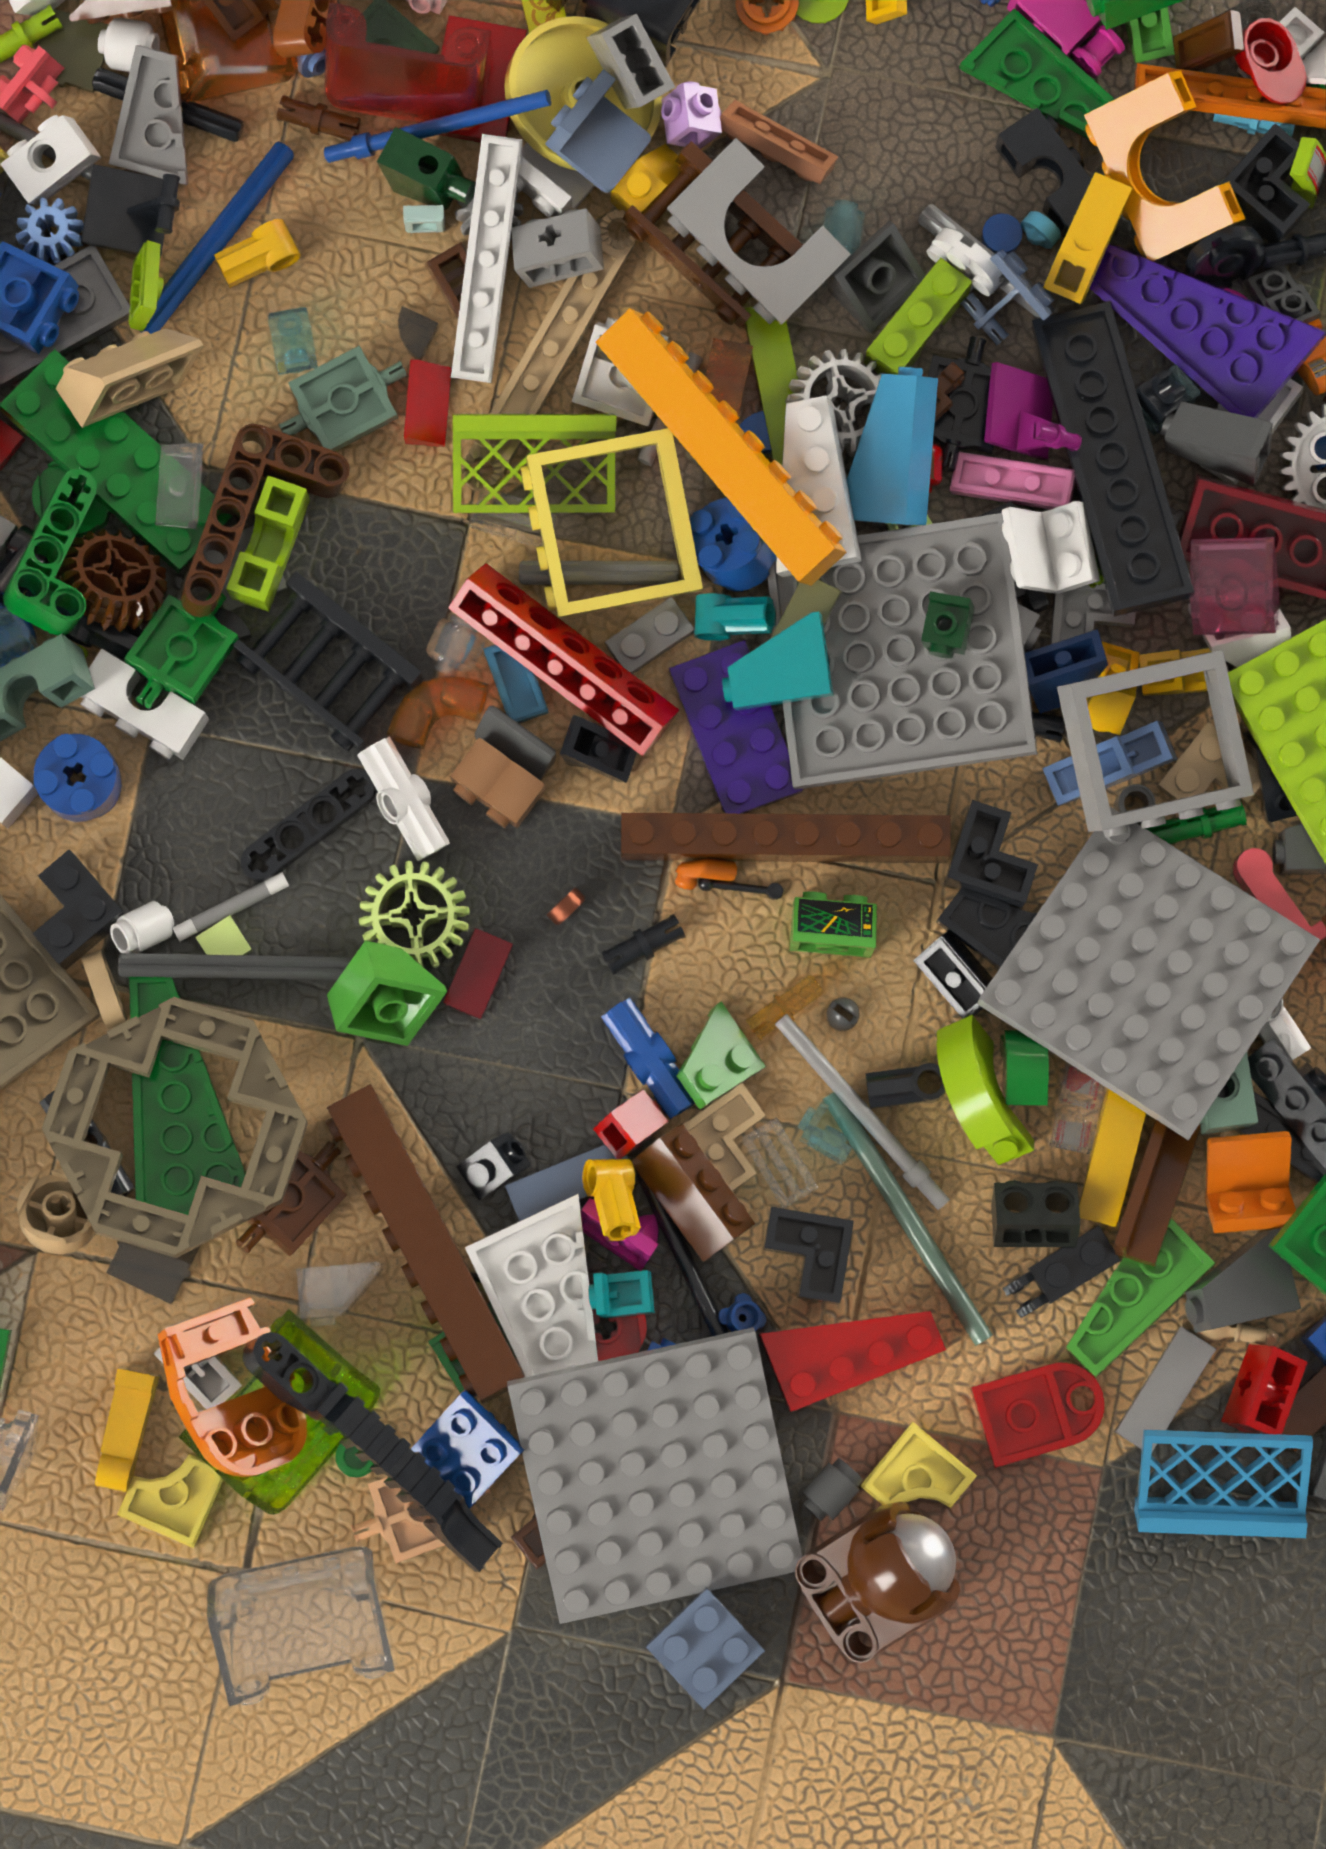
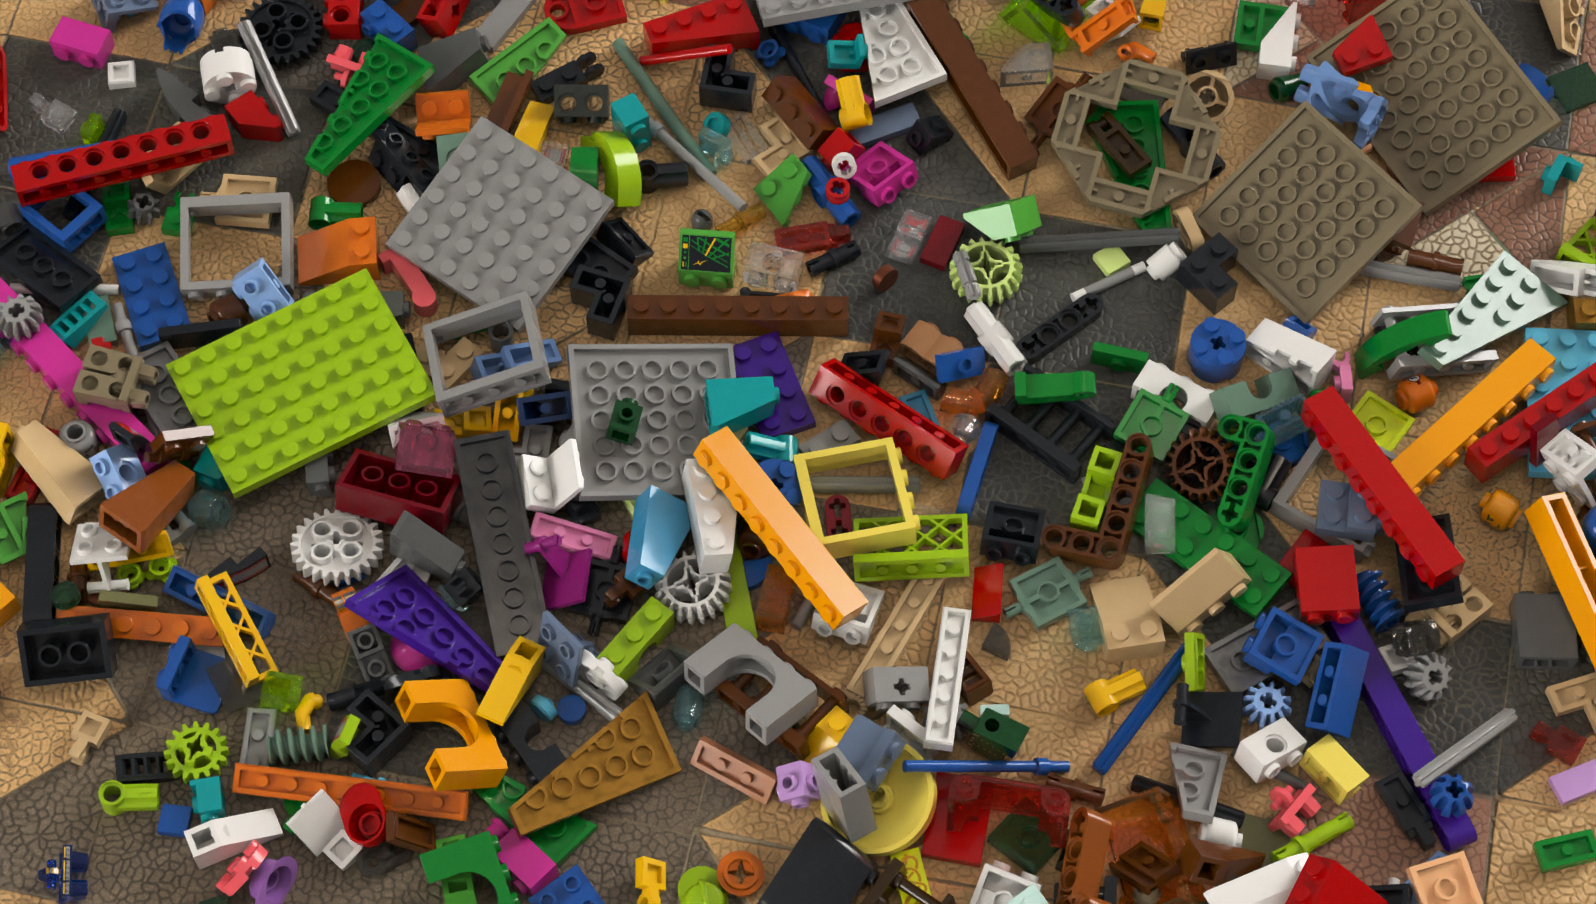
camera: 175 degrees left, 20 degrees down
(32, 1312) = (1210, 57): none -> black hinge
(158, 1321) = (1135, 51): none -> orange arm
(200, 1125) = (1119, 145): none -> dark brown plate
(222, 768) = (1118, 357): none -> green plate
(236, 365) = (1127, 620): none -> tan slope
(320, 696) = (1054, 387): none -> green leg
(389, 488) = (1012, 533): none -> black plate
(436, 587) = (977, 469): none -> blue beam
(443, 887) = (967, 275): none -> light grey axle
(456, 749) = (960, 364): none -> blue plate
(528, 984) = (909, 236): none -> clear slope
(564, 808) = (888, 334): none -> reddish brown slope
(570, 1087) = (883, 174): none -> dark pink plate
(624, 1035) = (835, 198): none -> red bush
(626, 1085) = (838, 158): none -> white bush
(646, 514) = (832, 521): none -> dark red beam
(679, 976) = (812, 237): none -> clear red hinge
(751, 939) = (765, 257): none -> clear brick
(823, 1178) = (718, 122): none -> teal tile
(875, 1289) = (687, 54): none -> red bar
(944, 139) = (611, 764): none -> pearl gold wing
(956, 1161) = (632, 121): none -> teal brick

